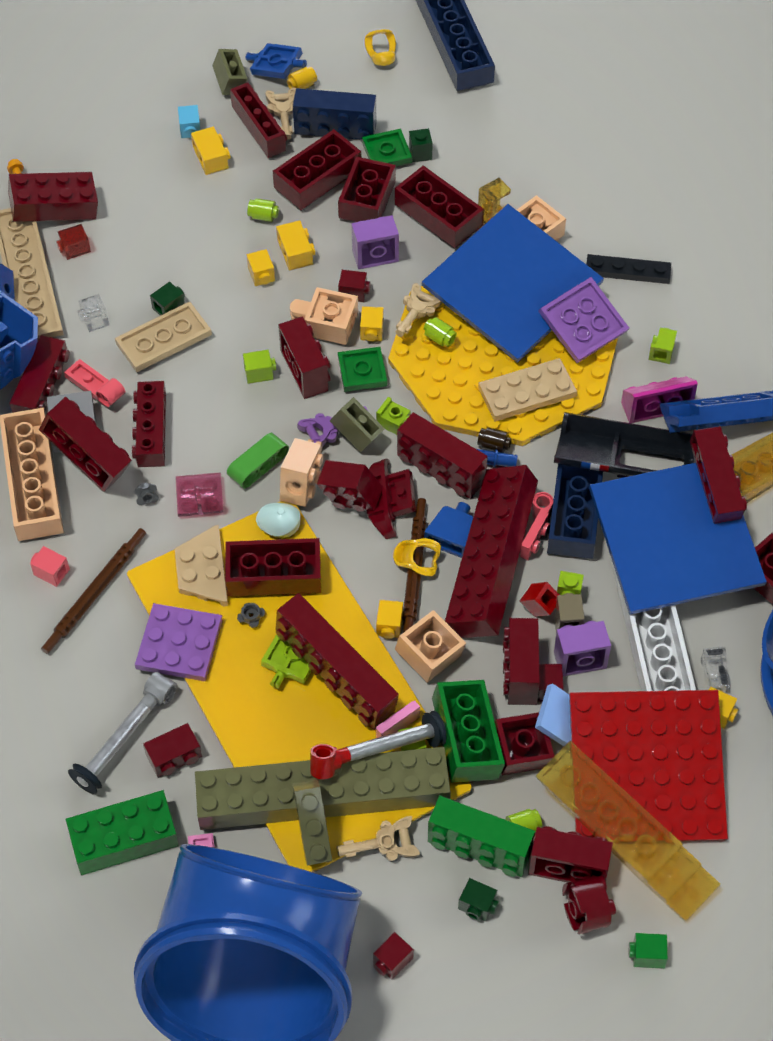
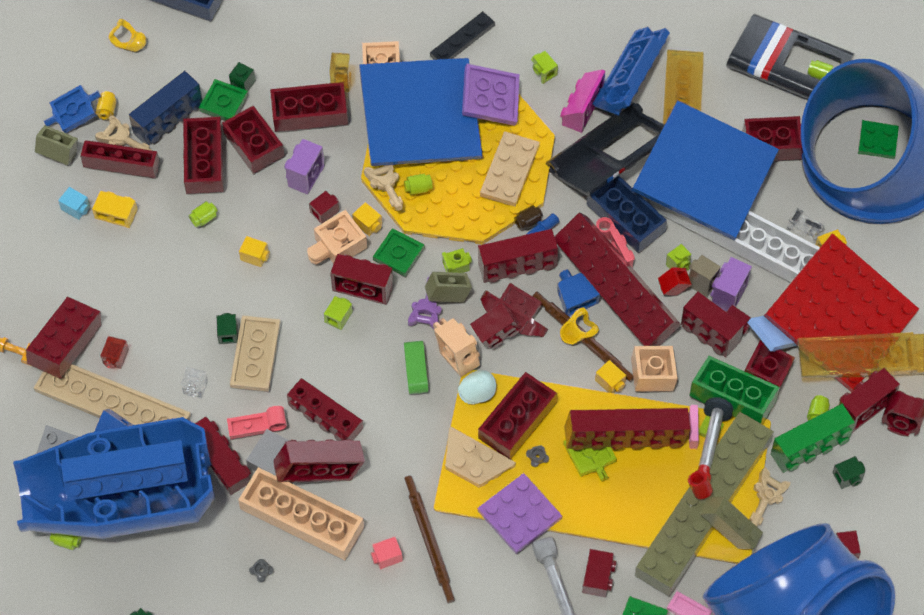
camera: 50 degrees left, 5 degrees up
(146, 493) = (380, 453): dark grey plate -> none
(199, 494) = (410, 422): clear pink plate -> none
(295, 245) = (254, 217): yellow brick -> none
(718, 475) = (691, 113): dark red brick -> none

